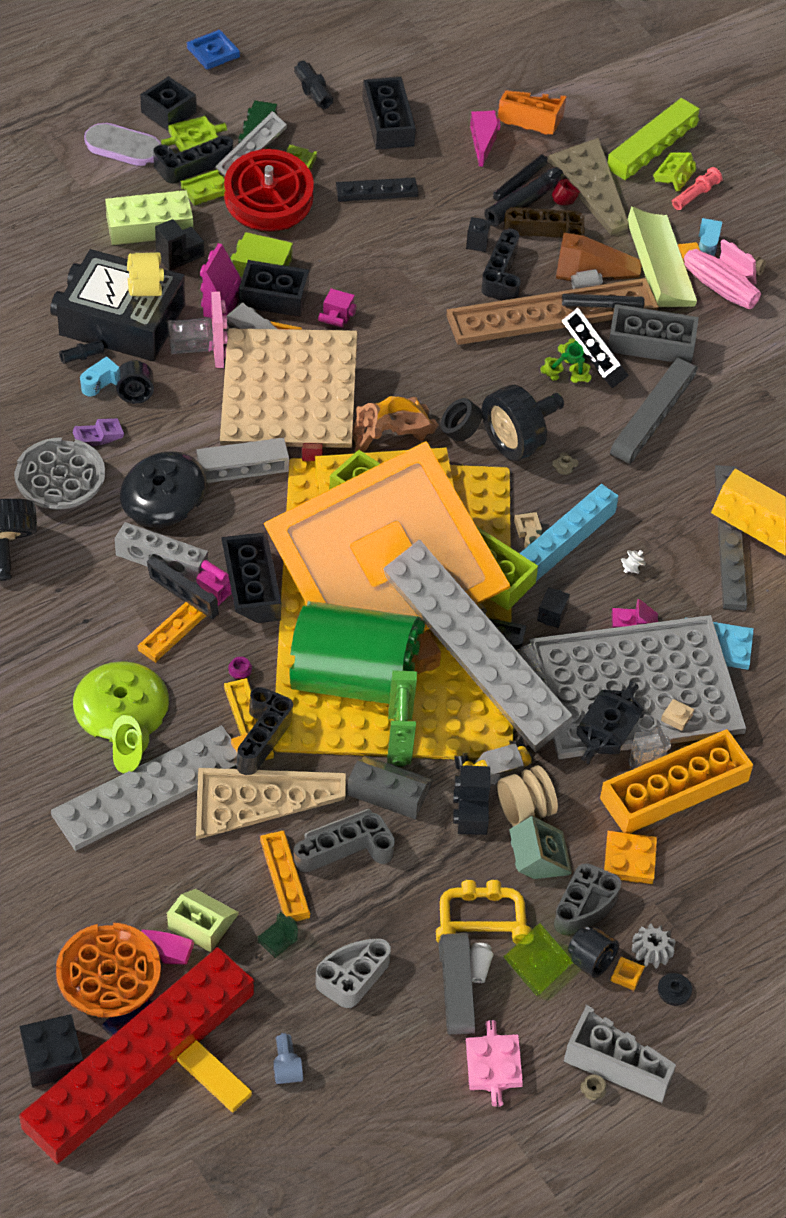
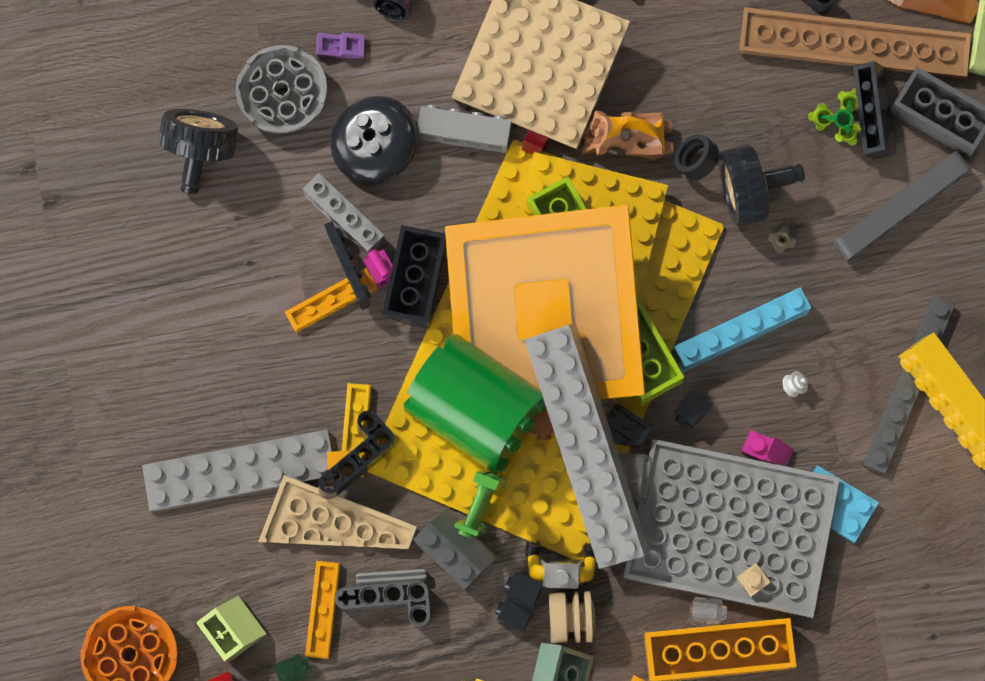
camera: 30 degrees right, 25 degrees up
(128, 749) = (236, 419): lime piece -> none
(140, 694) = (251, 389): lime brick -> none
(171, 947) = (191, 645): dark pink slope -> none
(240, 668) = (369, 371): magenta plate -> none
(528, 527) = (710, 305): tan plate -> none
(586, 279) = (907, 15): light grey brick -> none
(601, 301) = (909, 52): black axle -> none
(604, 735) = (674, 580): black plate -> none

